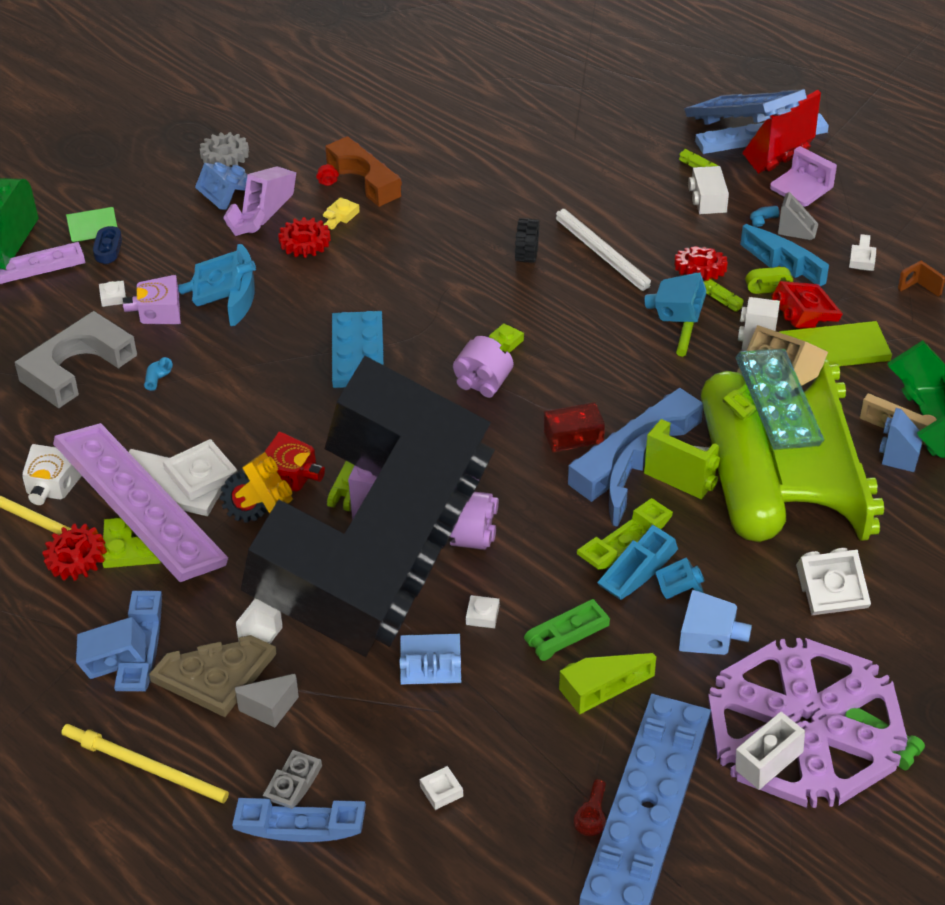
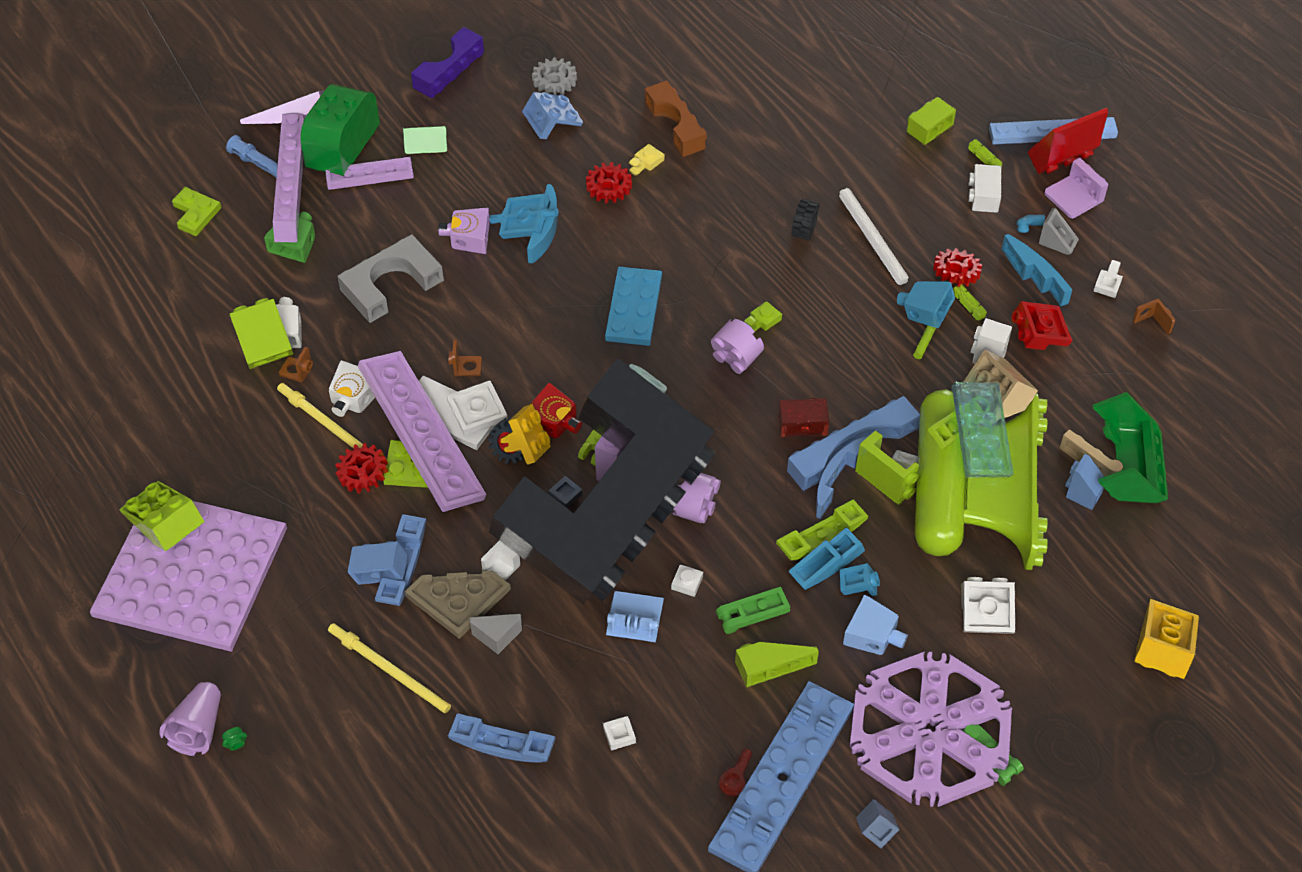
camera: 10 degrees right, 10 degrees up
(93, 166) = (434, 76): none -> dark purple arch
(107, 244) = (435, 162): dark blue plate -> none
(112, 293) = (432, 214): white plate -> none
(157, 371) = (456, 301): dark azure arm -> none
(171, 430) = (459, 361): none -> dark orange bracket
(245, 222) = (558, 157): lavender bracket -> none
(268, 190) = (584, 130): lavender slope -> none
(293, 780) = (503, 705): light grey slope -> none
(327, 175) = (642, 117): red plate -> none
(634, 139) = (931, 120): none -> lime brick
(754, 105) = (1036, 110): medium blue piece -> none
(767, 279) = (1014, 293): lime beam -> none
(770, 750) = (889, 753): white brick -> none
(775, 835) = (877, 823): none -> sand blue panel
(847, 343) = (1060, 370): lime tile -> none

